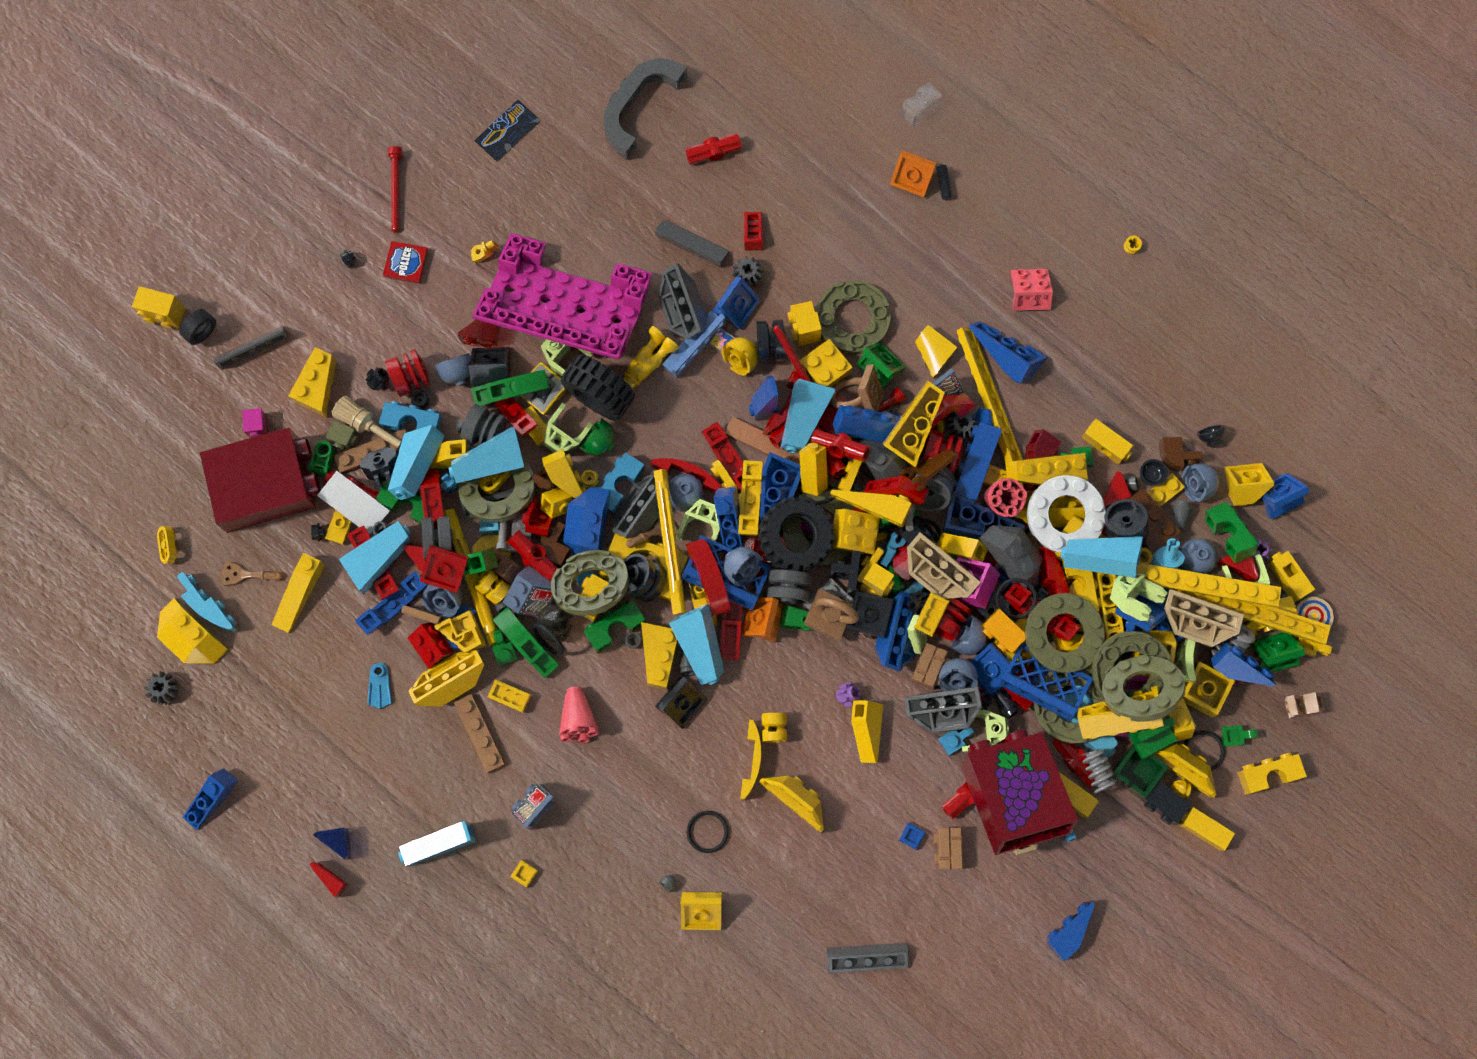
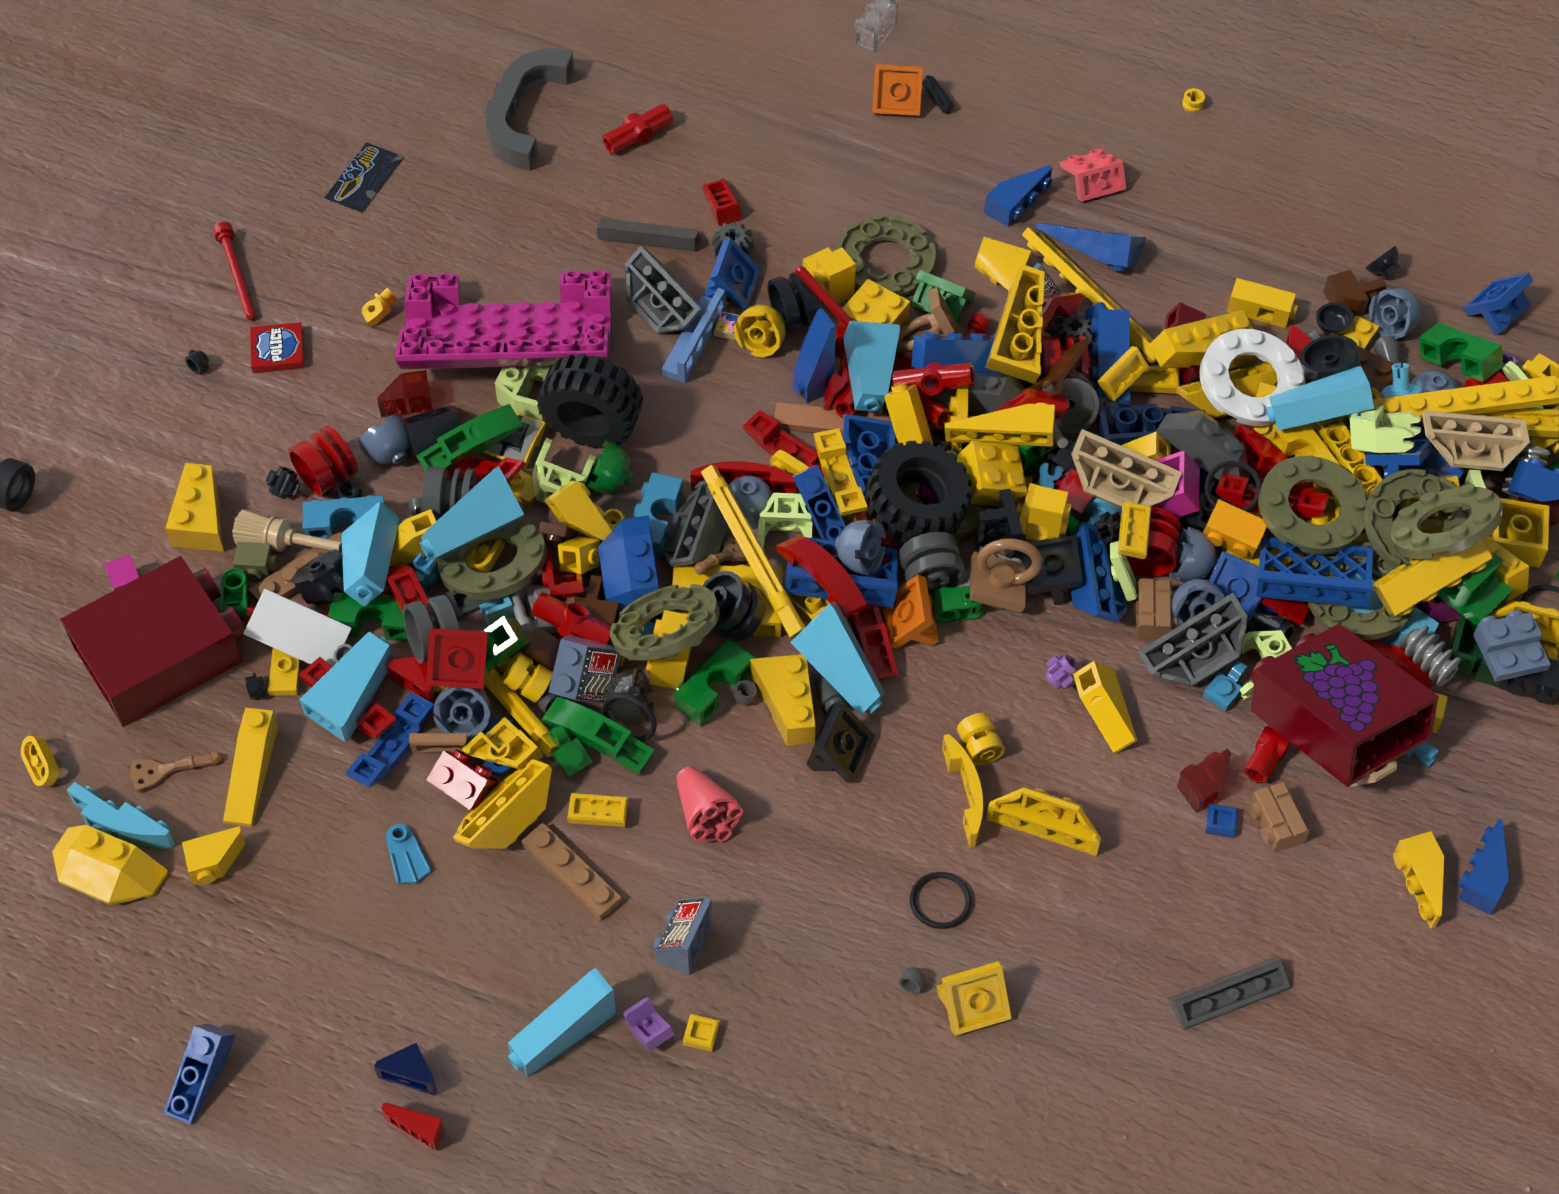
camera: 20 degrees left, 20 degrees down
(154, 686) = (94, 946): dark grey gear -> none
(251, 347) = (93, 496): dark grey slope -> none
(256, 650) = (212, 854): none -> yellow slope
(491, 860) = (647, 1024): none -> medium lavender bracket
(644, 362) = (643, 338): yellow piece -> none
(912, 807) = (1205, 781): none -> clear red slope
(962, 293) = (1014, 195): none -> blue slope
(977, 479) = (1123, 373): none -> yellow plate
(1006, 497) = (1166, 380): coral cone -> none
(1029, 917) = (1423, 868): none -> yellow slope
(1156, 783) = (1511, 645): none -> sand blue plate
(1247, 483) = (1453, 301): yellow slope -> none

